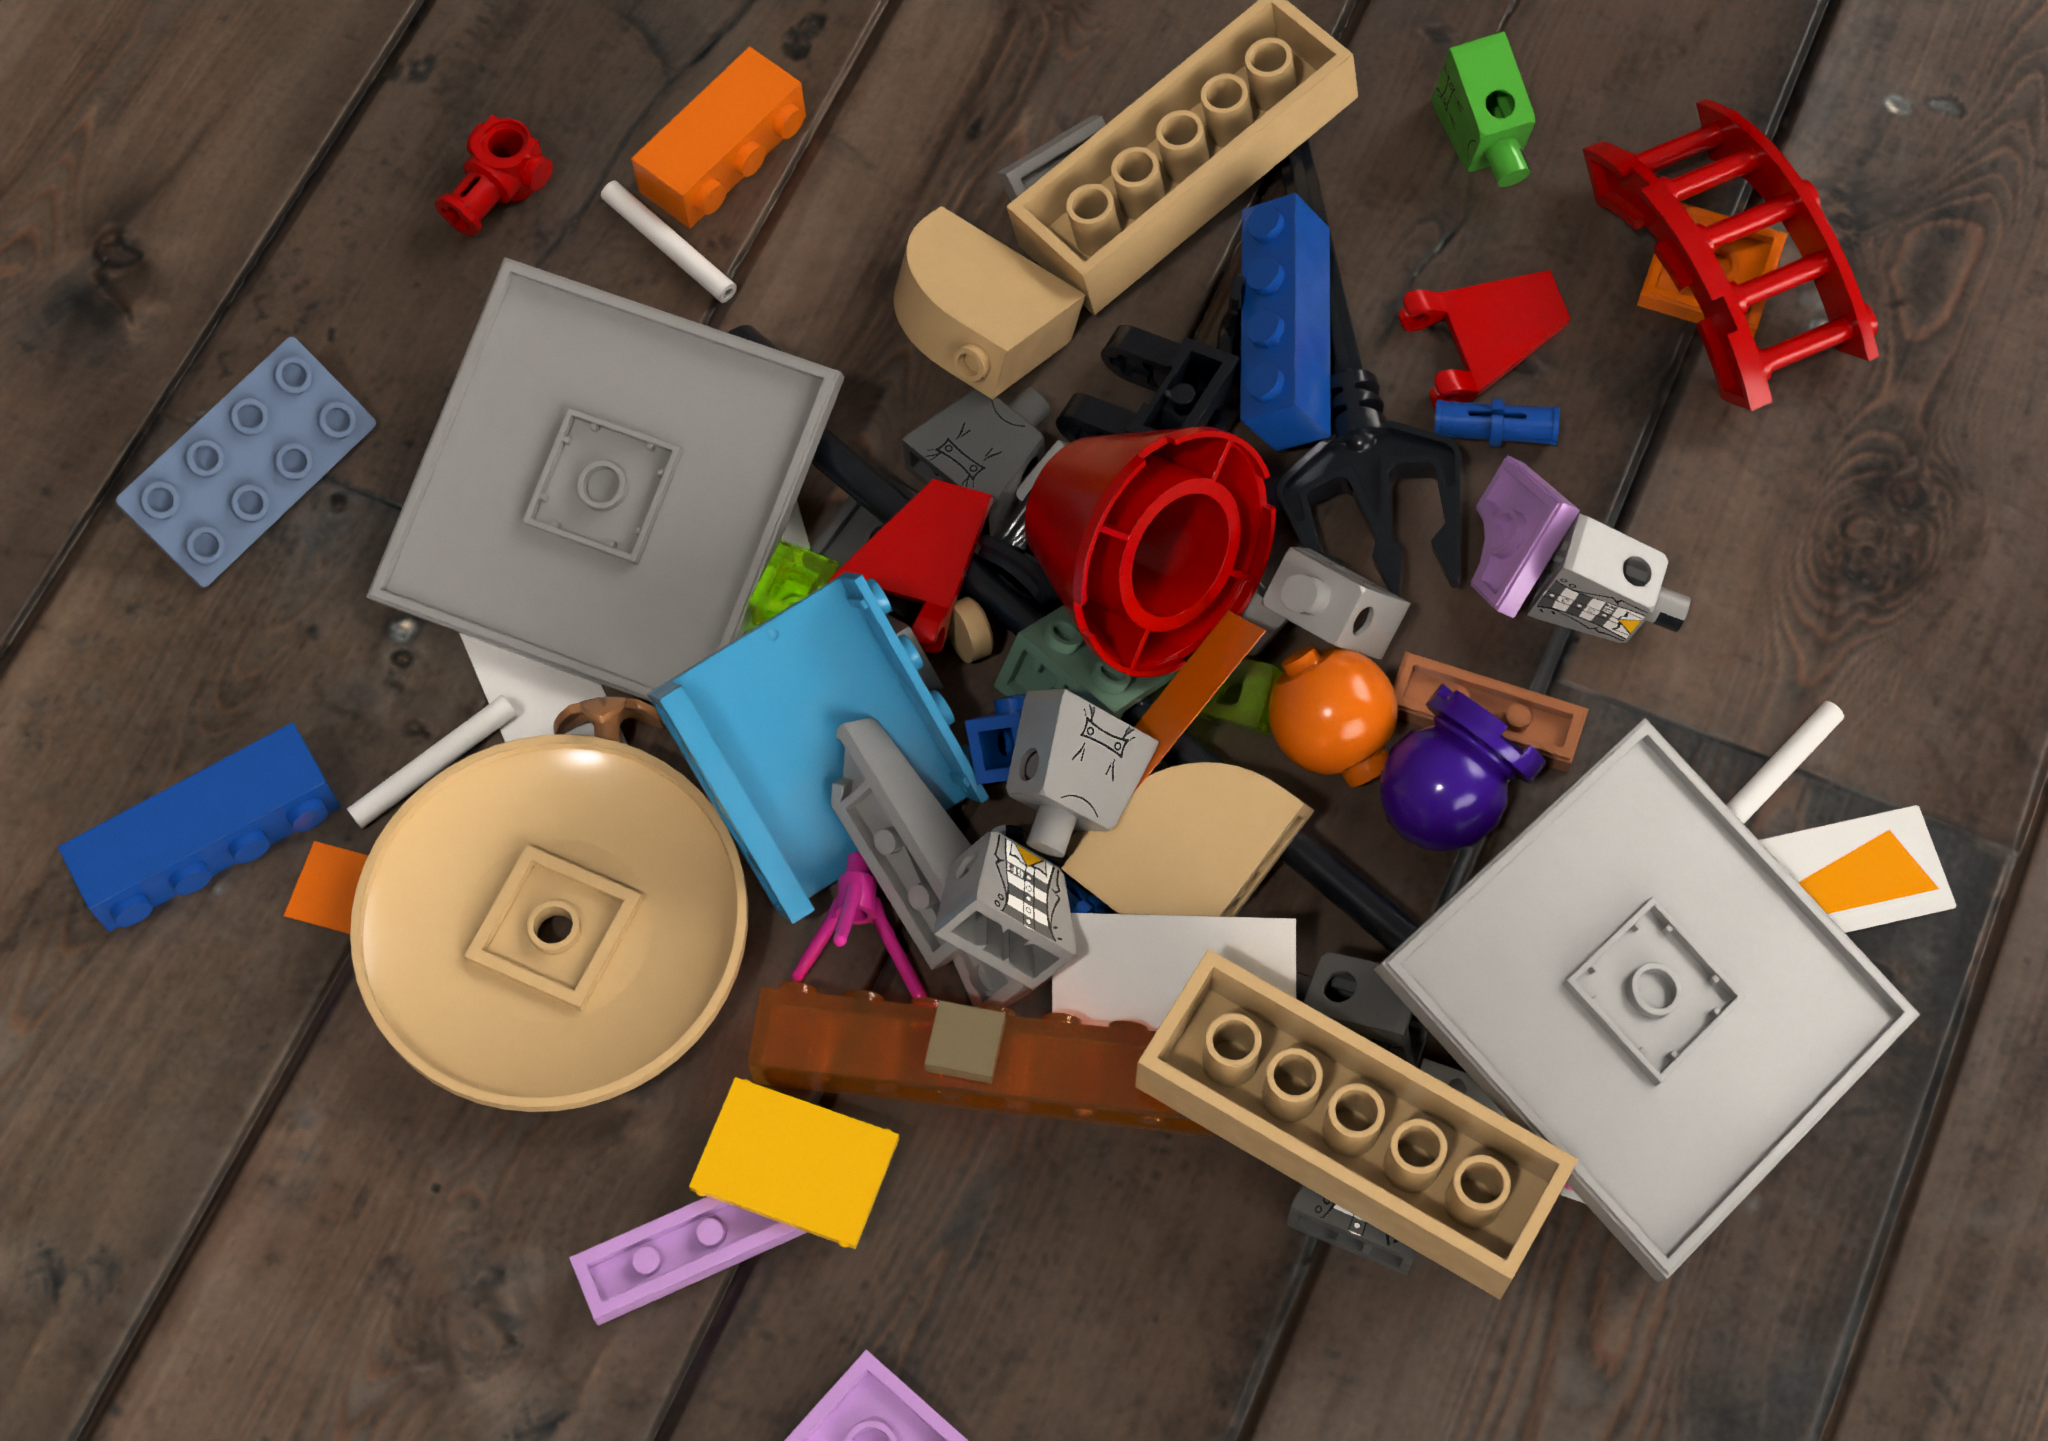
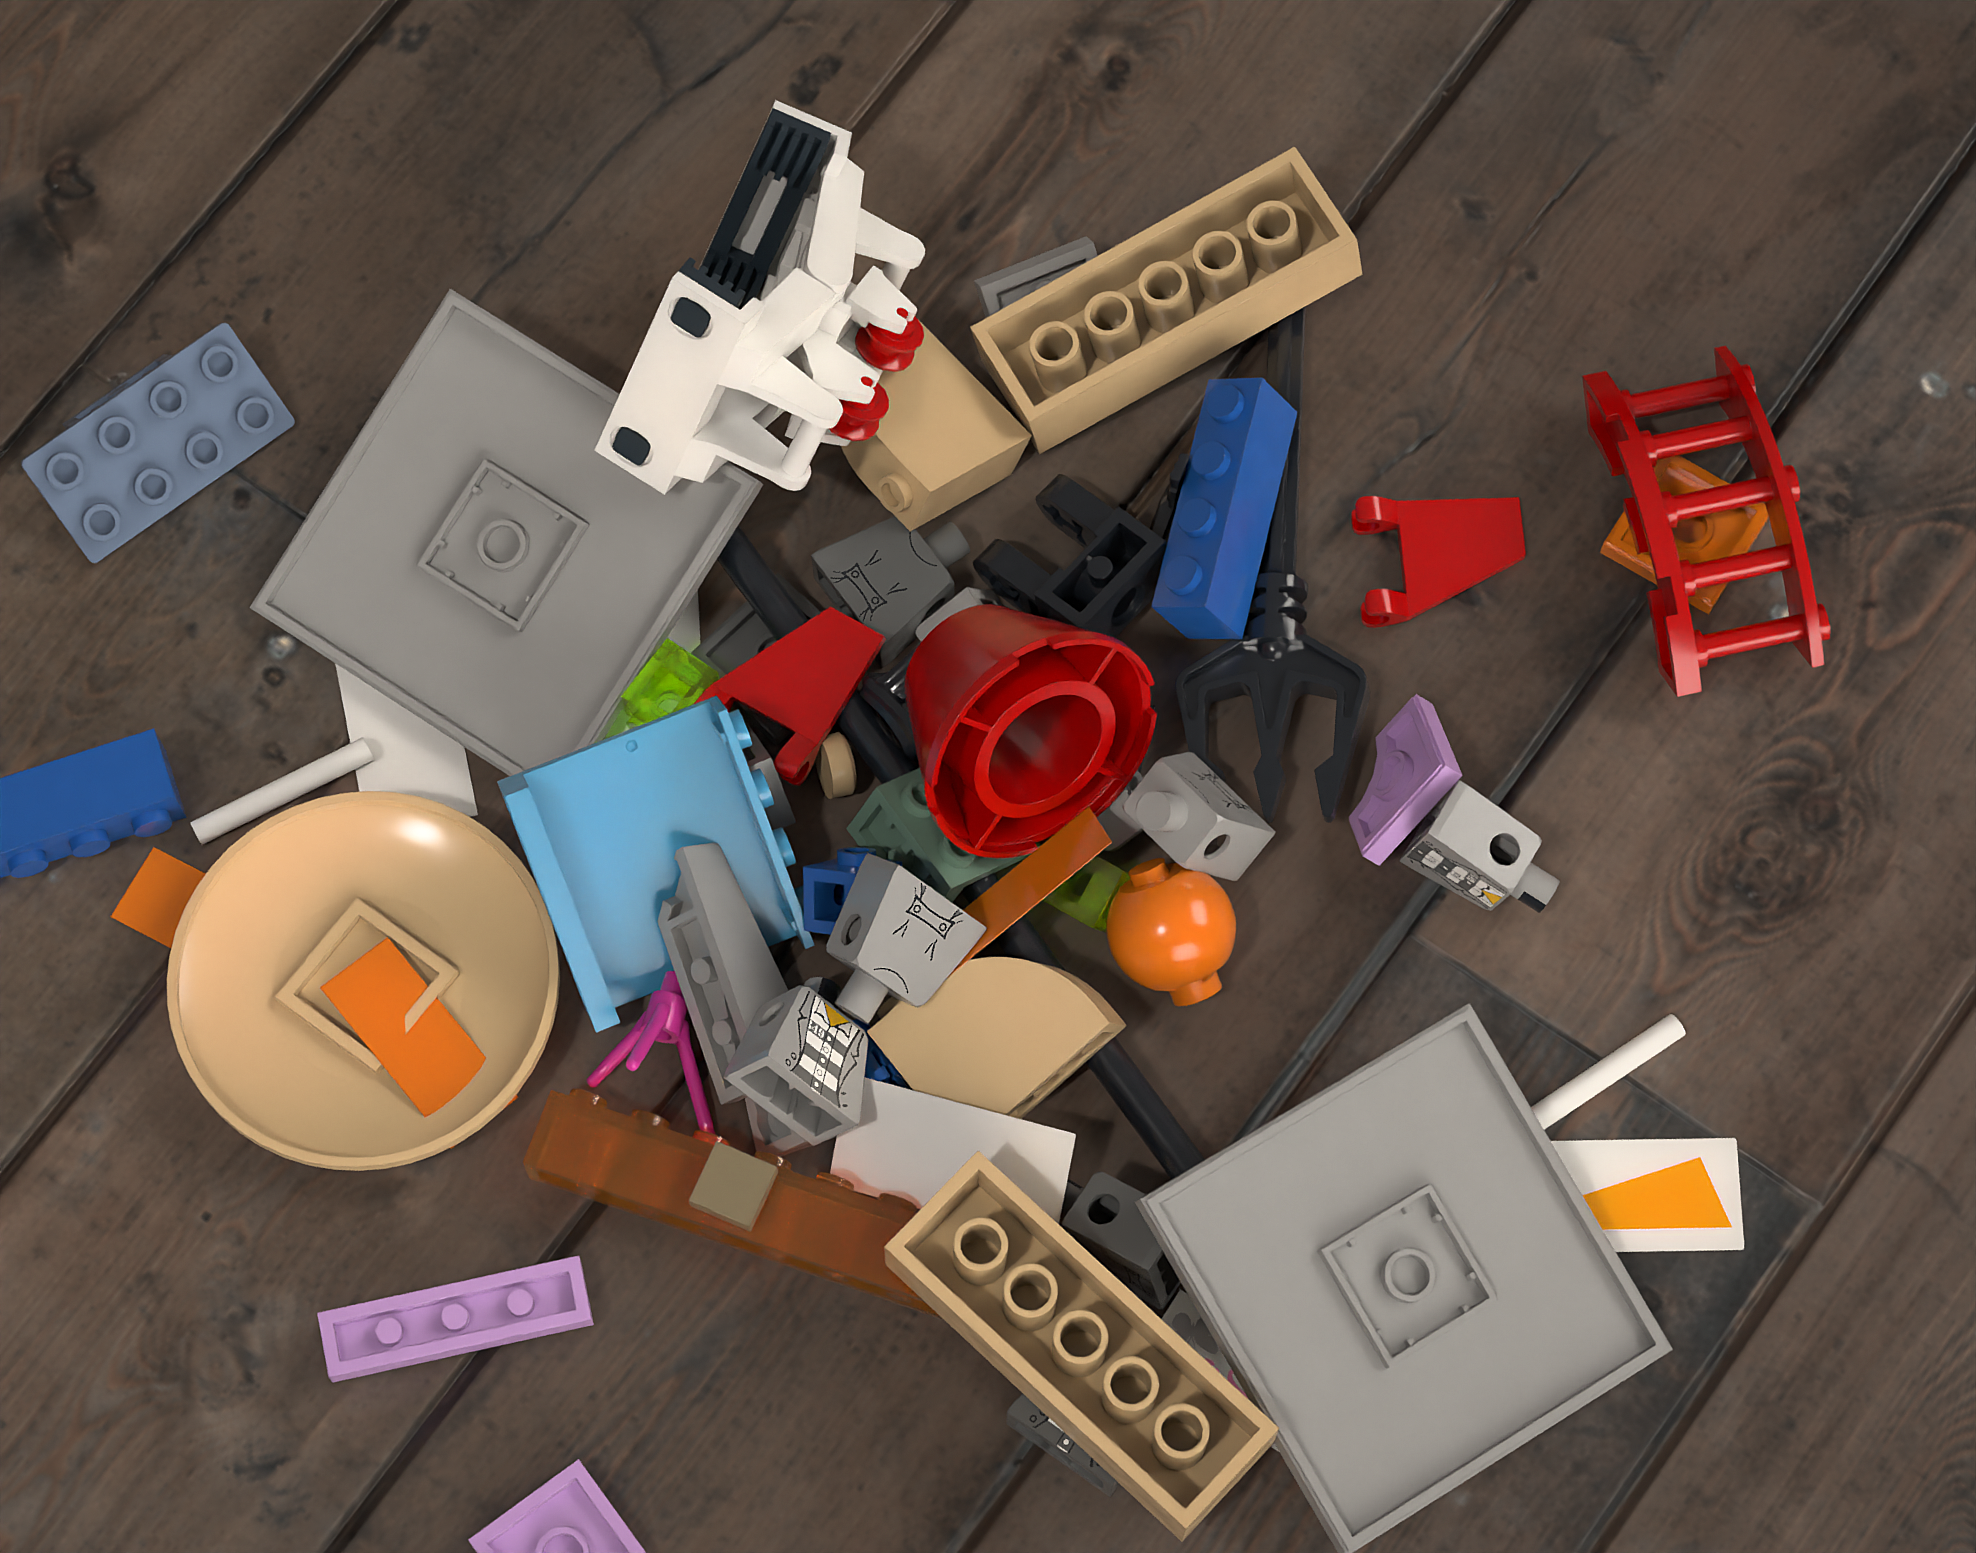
camera: 10 degrees right, 5 degrees up
(493, 174) = (458, 181): red connector -> none
(606, 716) = (456, 781): medium nougat plant -> none
(630, 987) = (429, 1060): none -> orange sticker
(668, 241) = (614, 266): white piece -> none
(720, 137) = (687, 187): orange brick -> none
(794, 1162) = (548, 1267): yellow piece -> none
(823, 201) = (772, 323): none -> white container
(1451, 778) = (1269, 1020): dark purple tile -> none
(1486, 108) = (1488, 293): bright green torso -> none
(1497, 422) = (1418, 653): blue pin -> none
(1531, 717) = (1331, 954): nougat tile -> none

